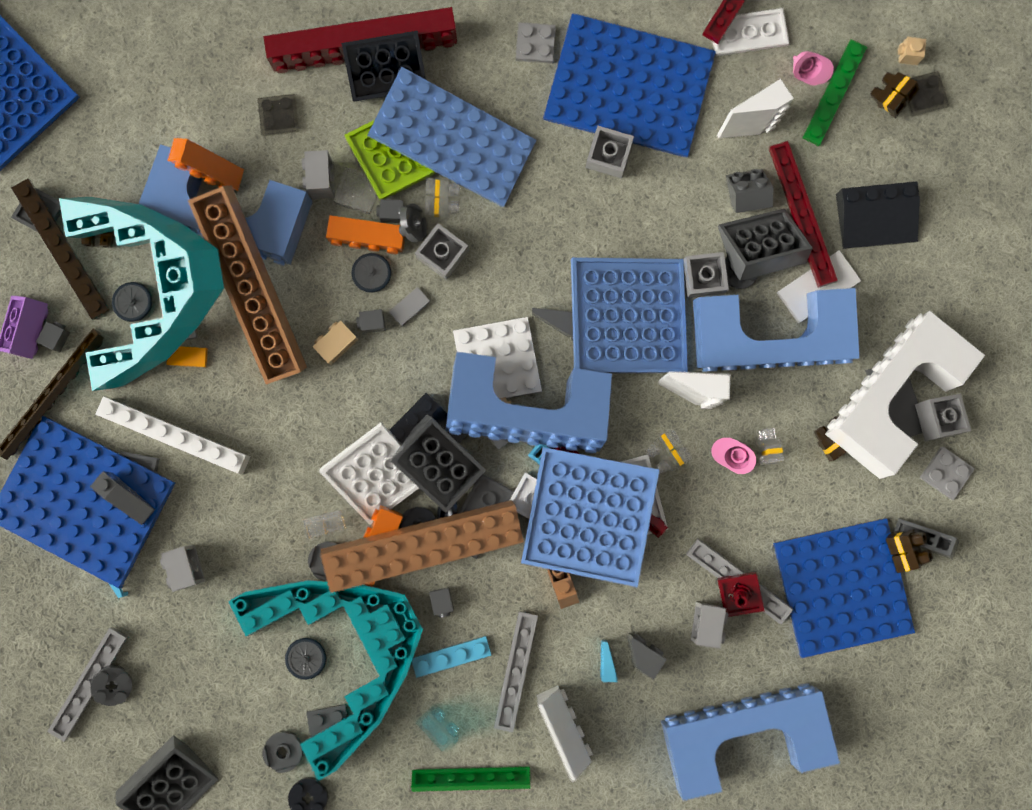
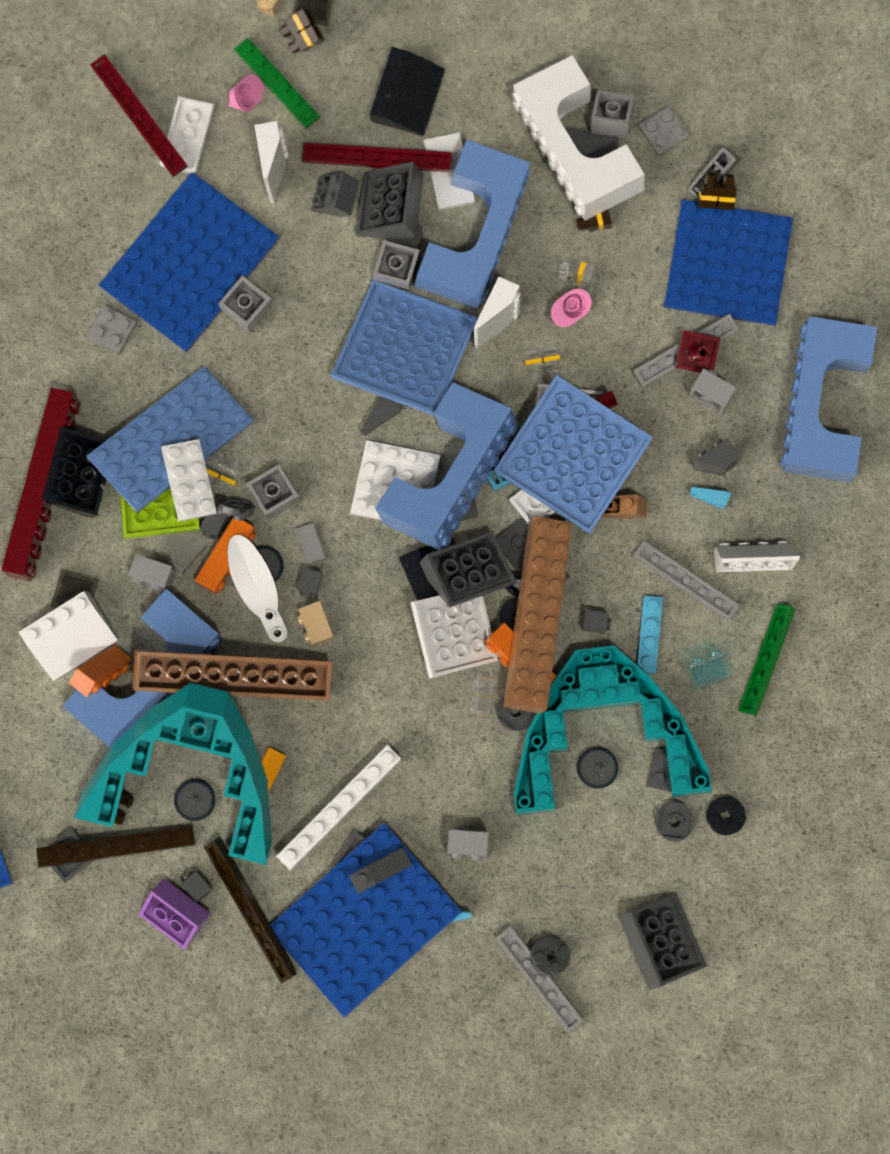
camera: 60 degrees left, 5 degrees down
(234, 125) = (69, 635): none -> white slope
(347, 272) = (255, 584): none -> white plant
(417, 169) = (188, 480): none -> white plate

